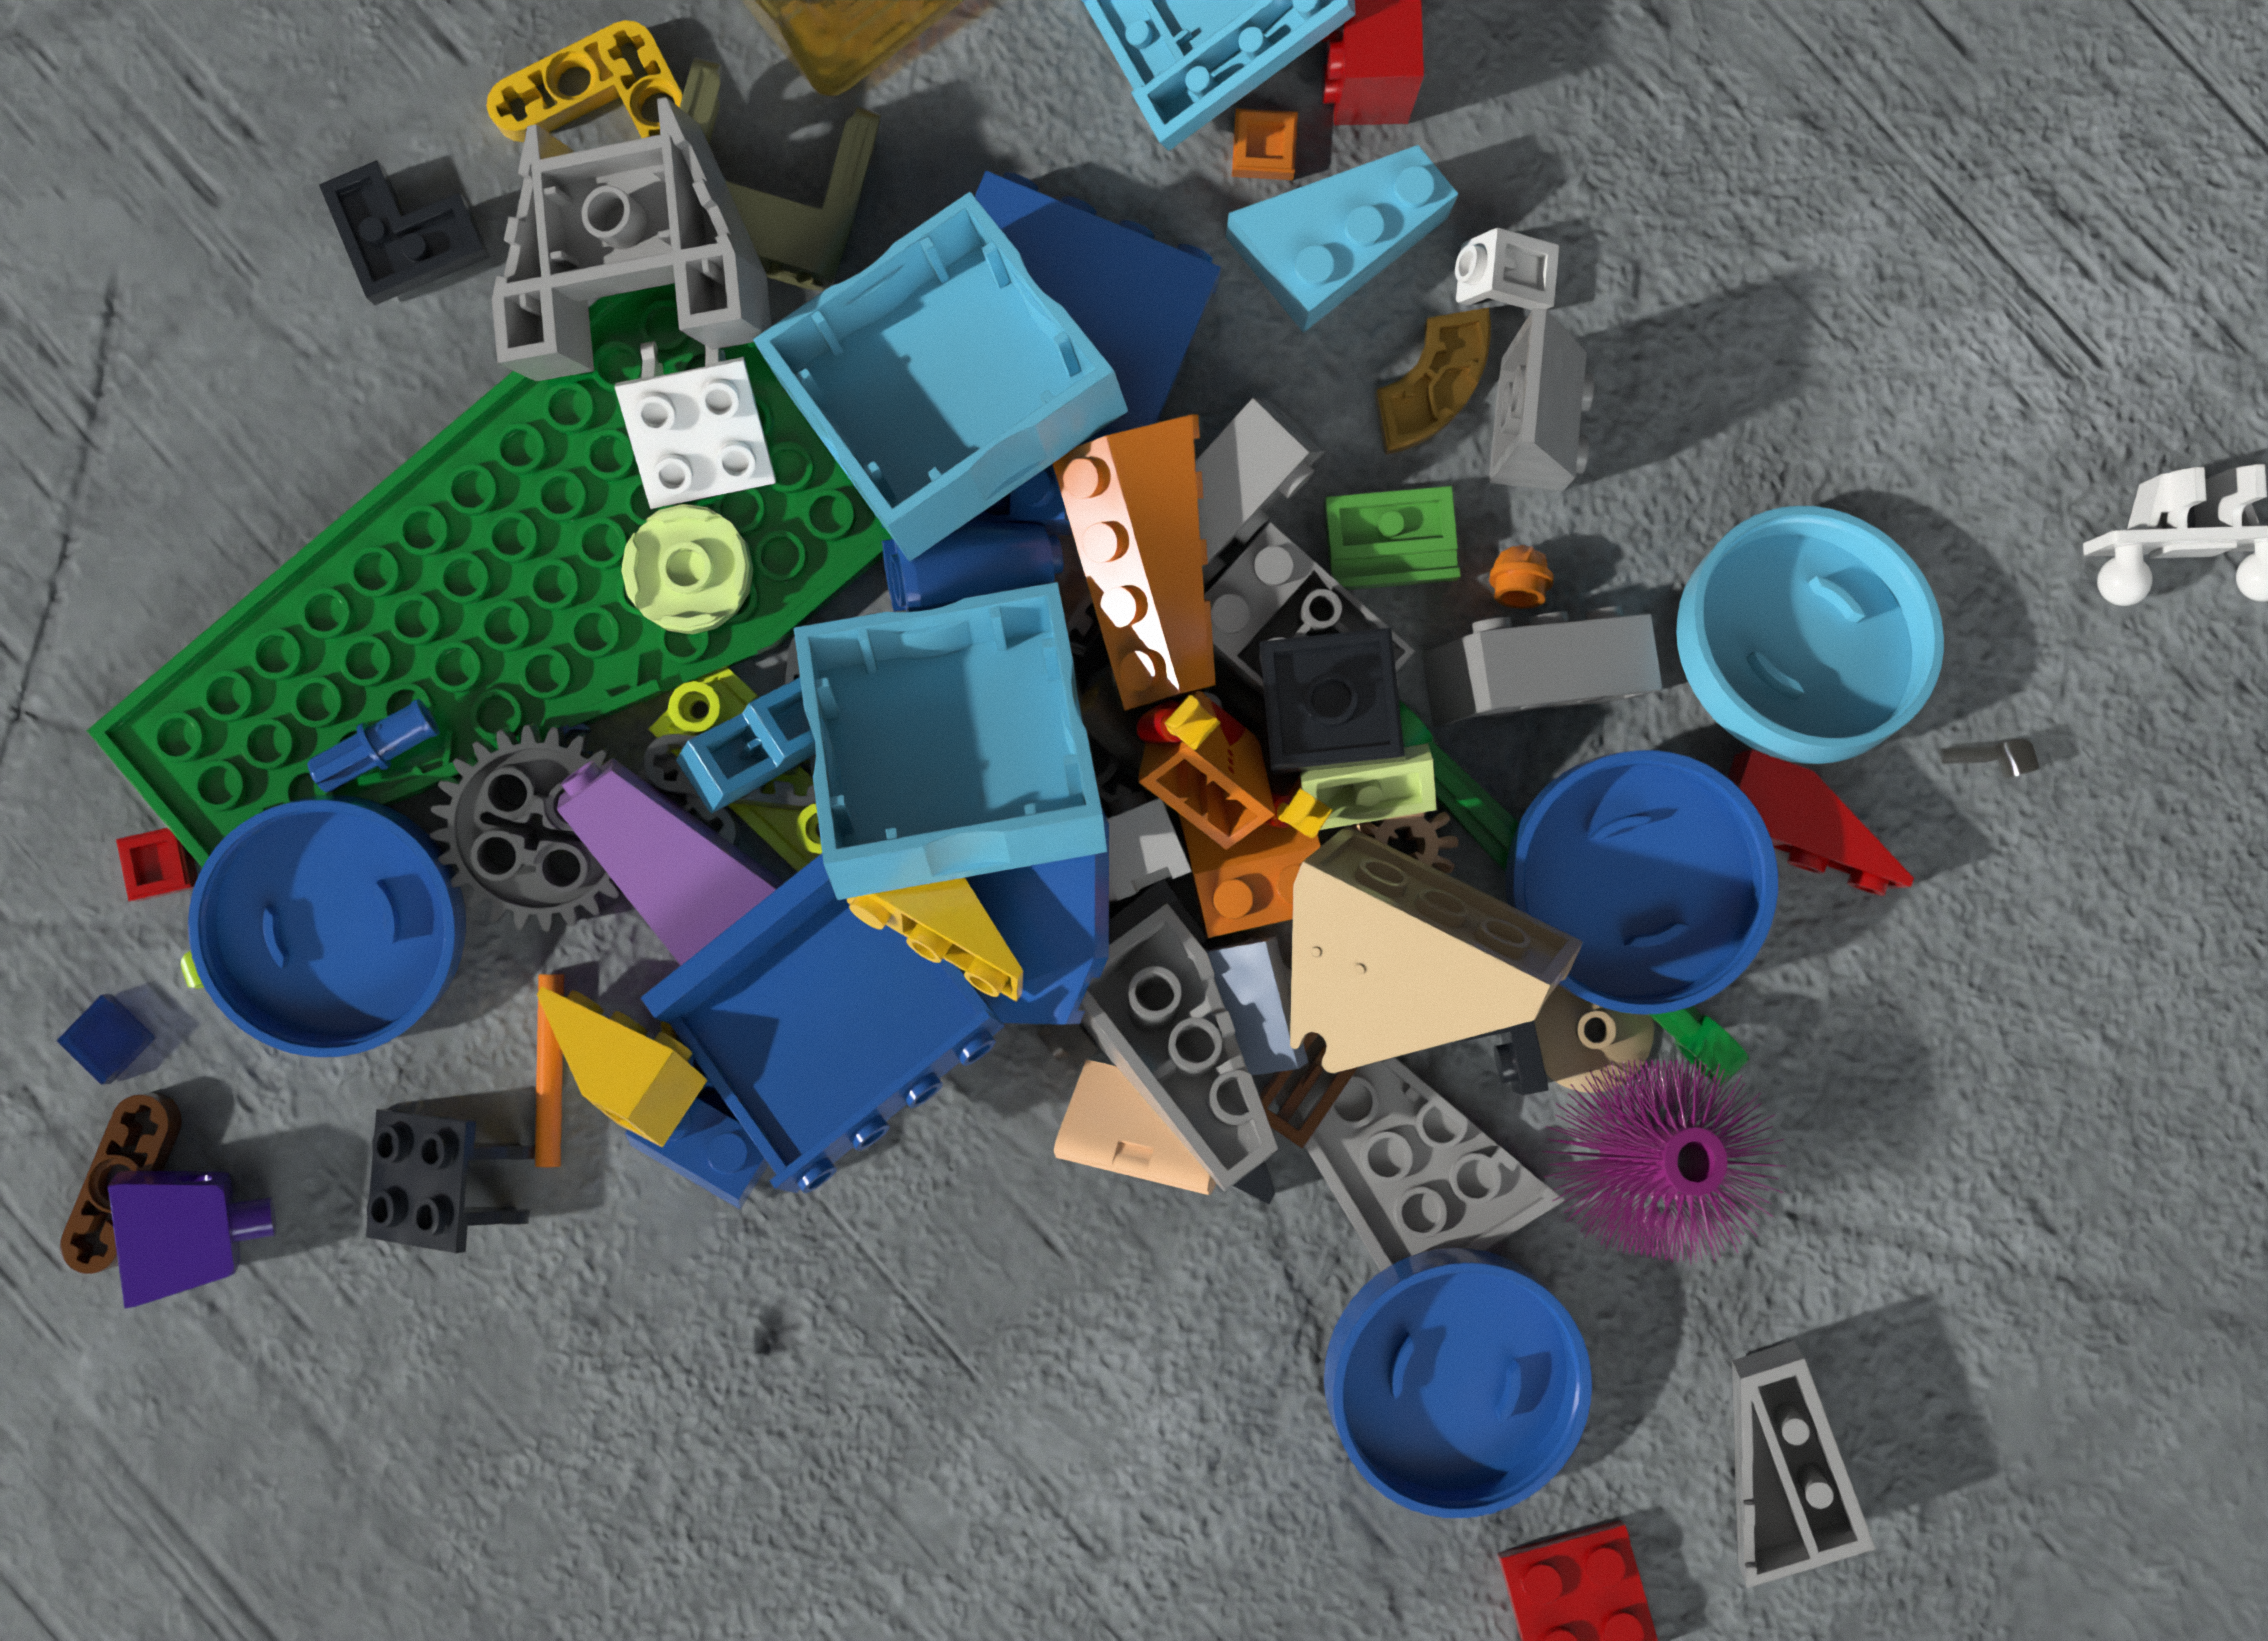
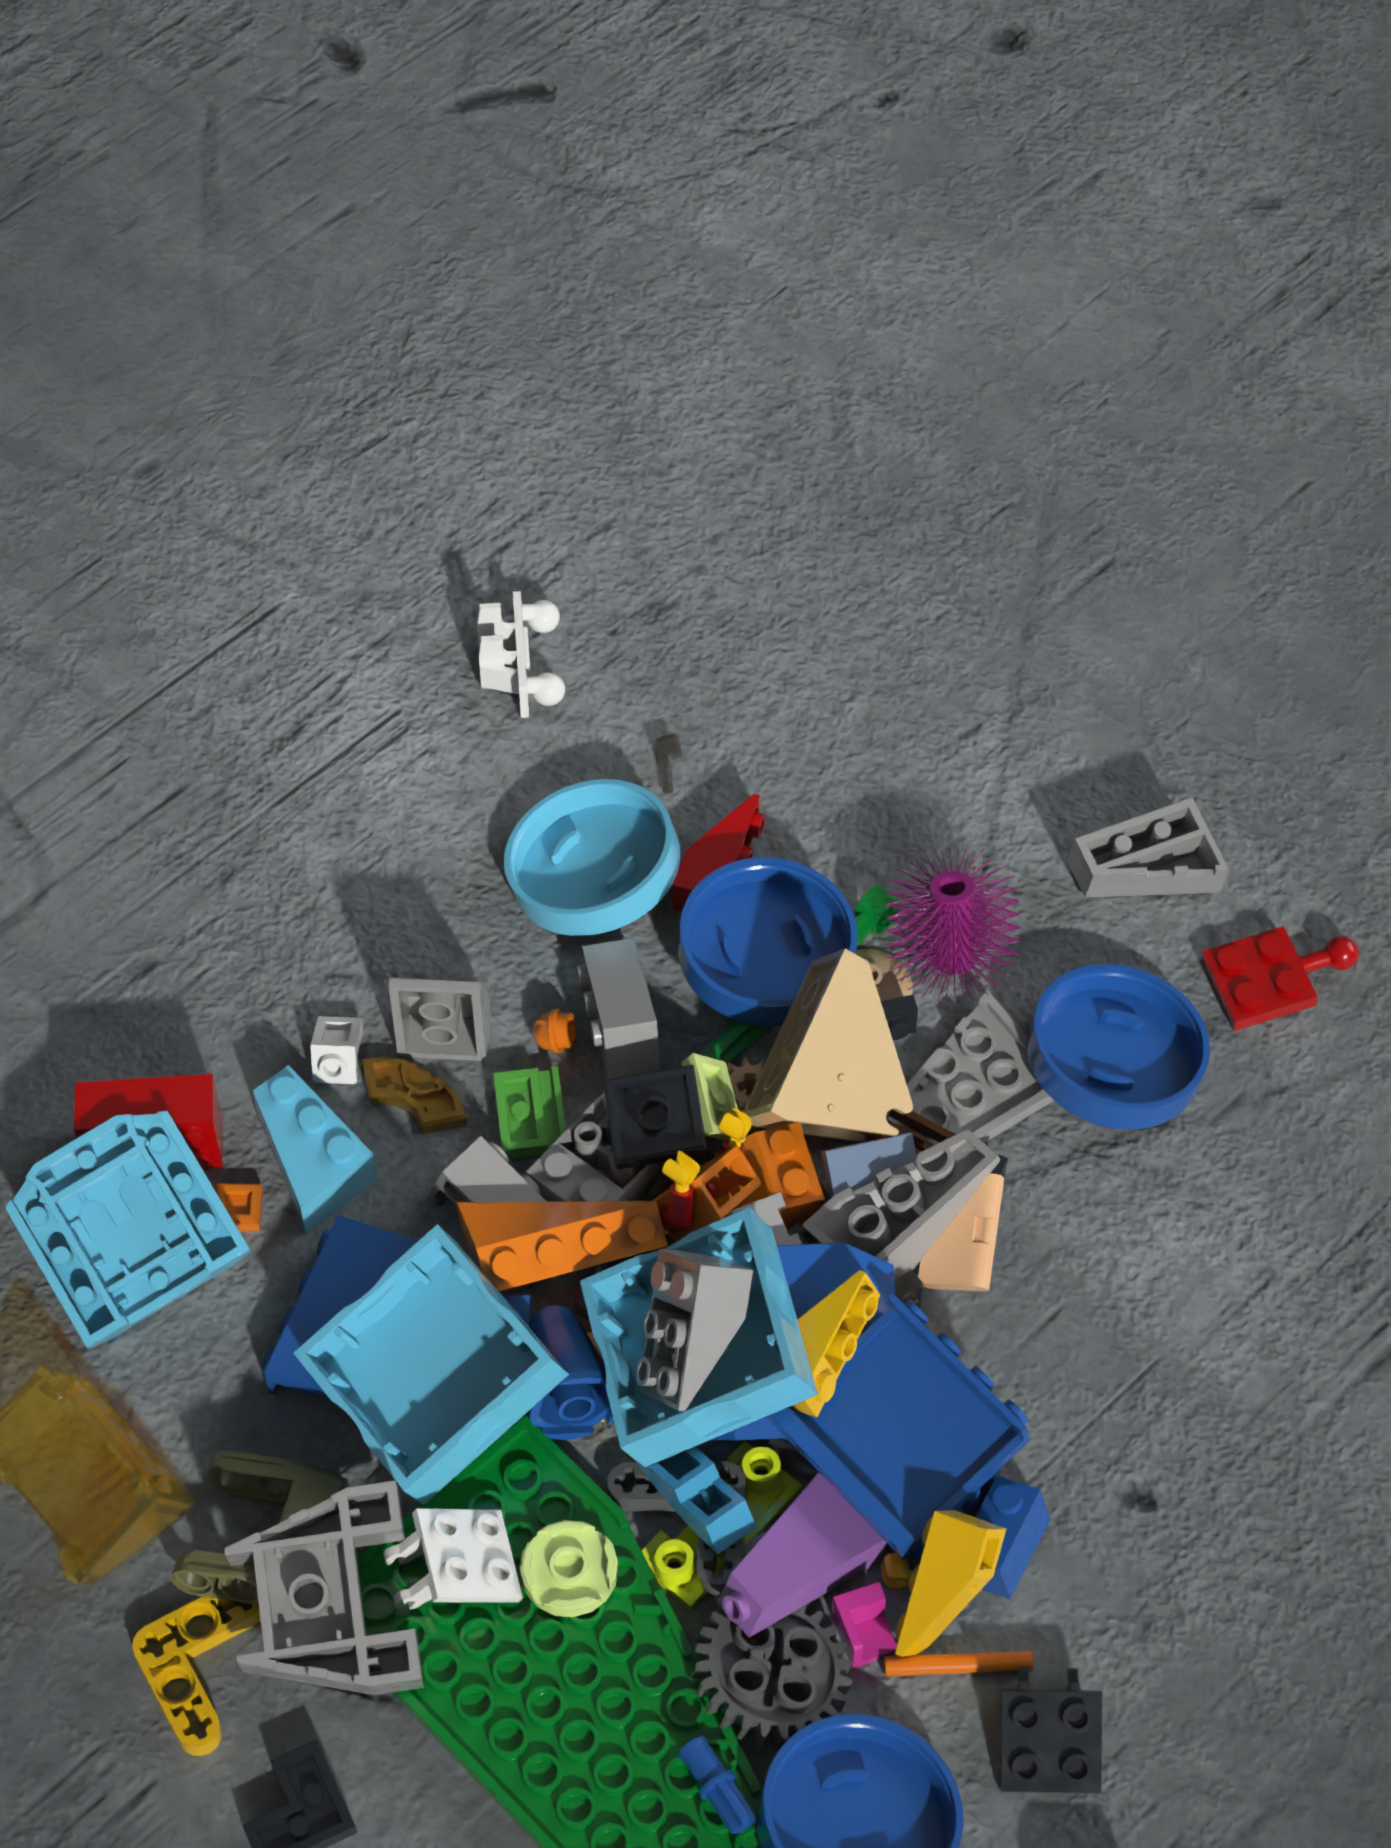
camera: 90 degrees left, 30 degrees down
(600, 950) = (863, 1624): none -> dark pink panel
(954, 729) = (690, 1322): none -> light grey slope

